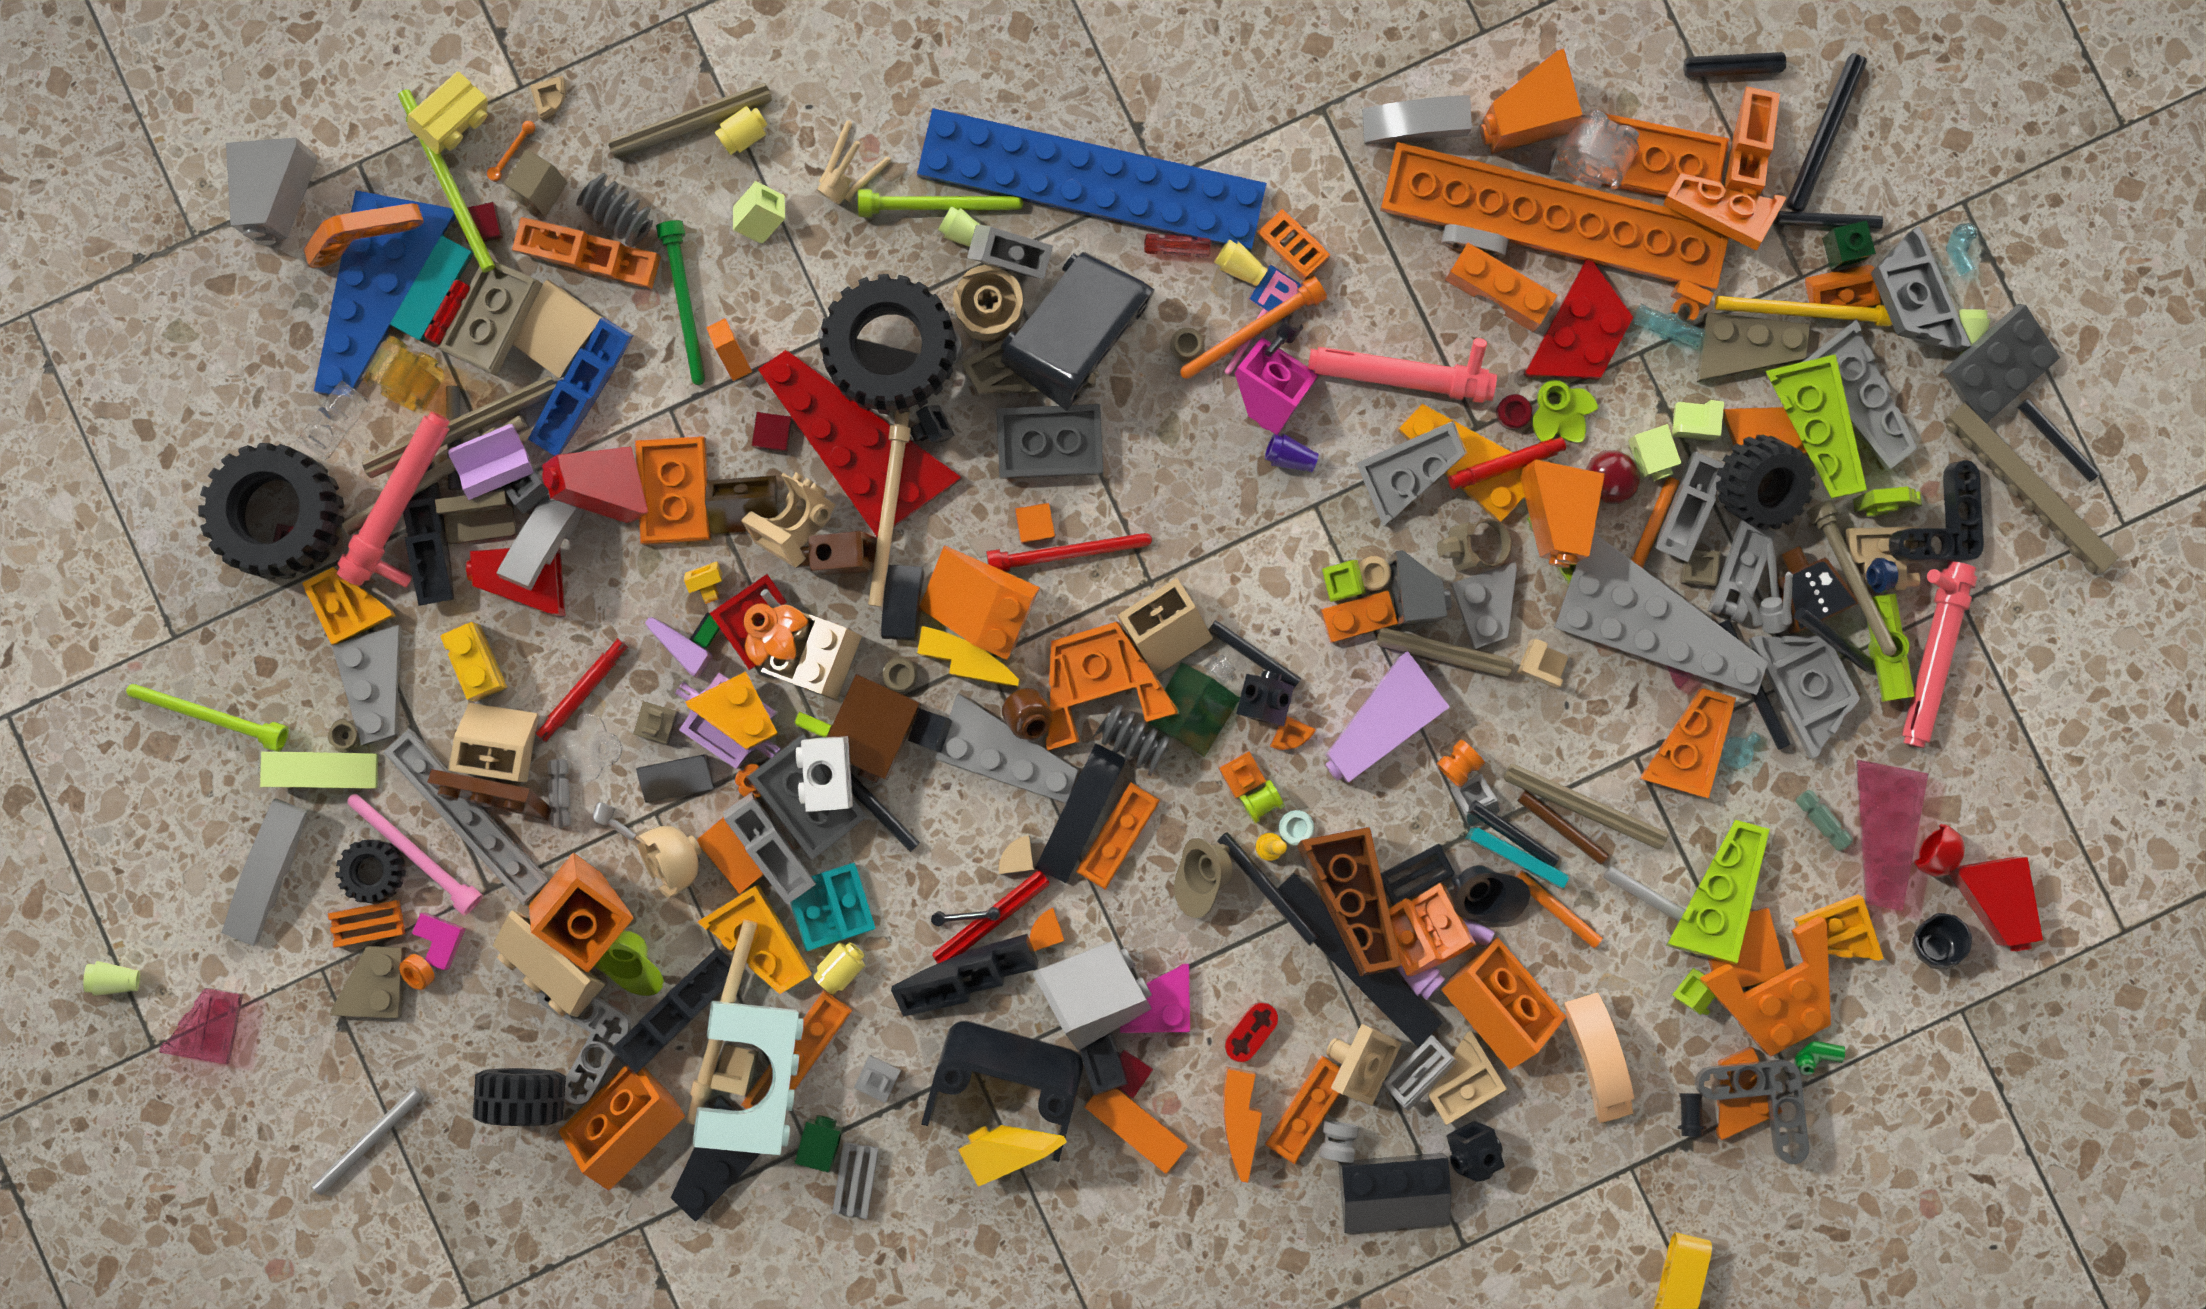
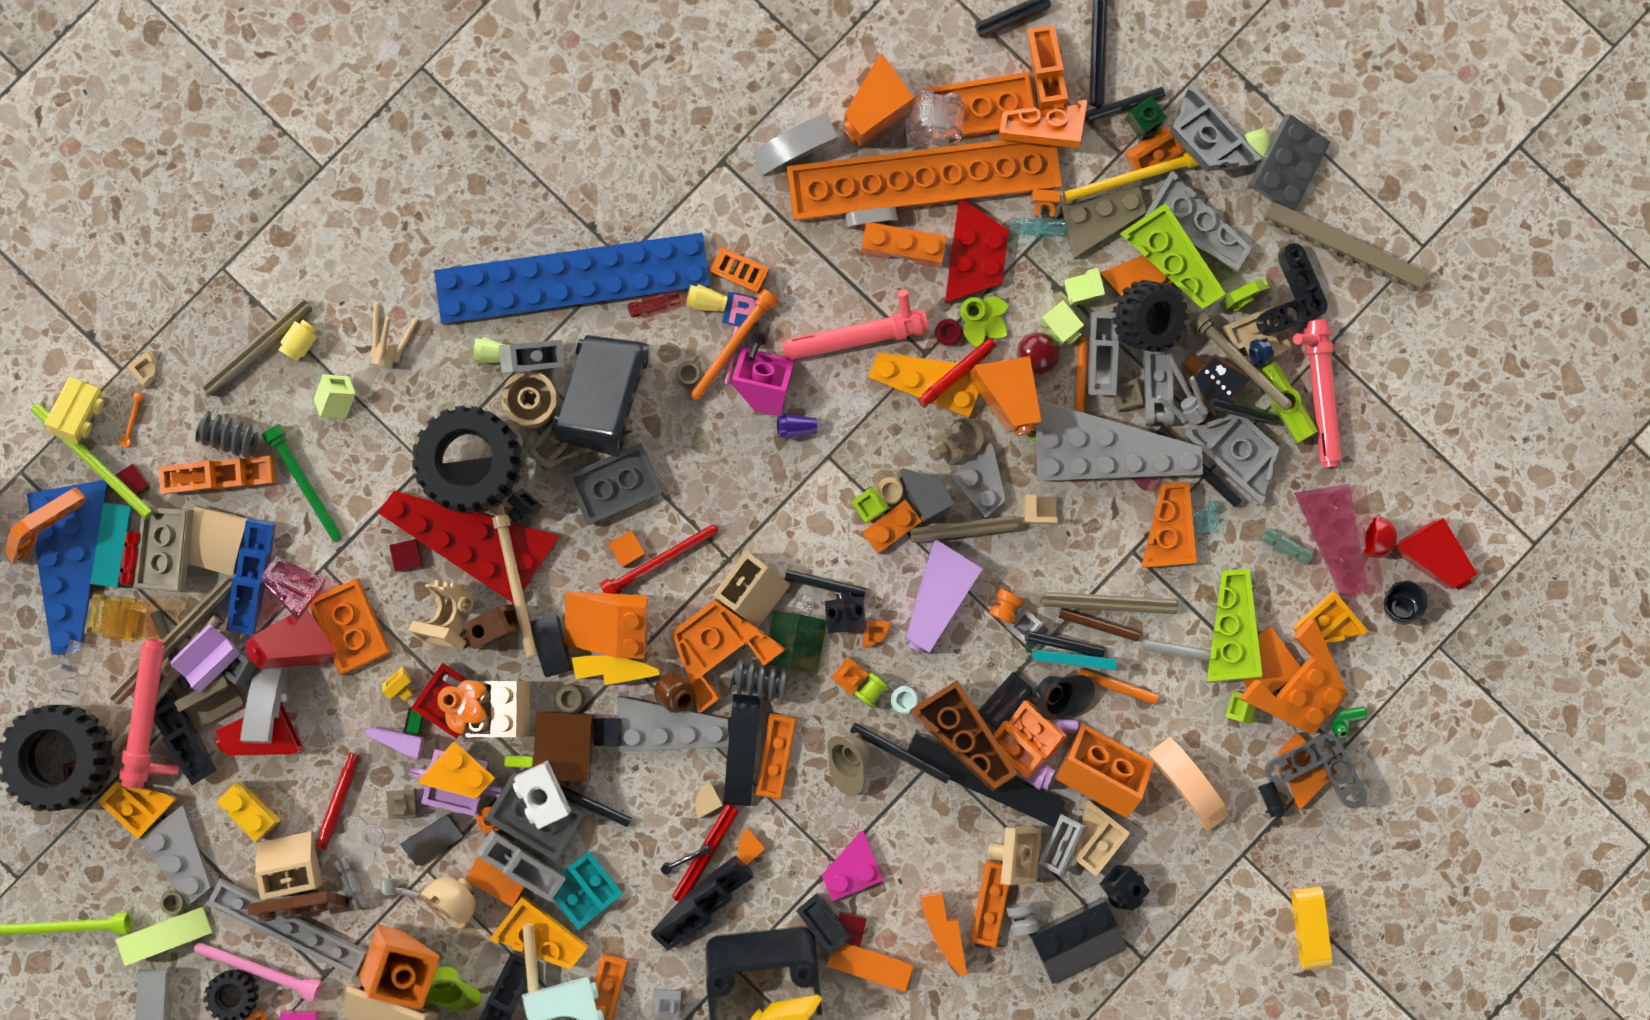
camera: 25 degrees left, 0 degrees up
(535, 184) = (159, 439): dark tan brick -> none
(625, 415) = (292, 585): none -> clear pink wing
(728, 349) = (350, 506): orange piece -> none
(732, 499) = (397, 615): dark brown panel -> none
(839, 967) = (607, 933): light yellow brick -> none
(871, 203) = (416, 357): lime piece -> none
(1094, 993) = (801, 880): slope -> none
(1257, 1038) = (921, 860): red beam -> none
(1270, 846) = (889, 721): yellow piece -> none
(1408, 469) = (887, 404): light grey wing -> none
(1959, 245) = (1225, 87): clear light blue arm -> none
(2064, 446) = (1352, 202): black bar -> none

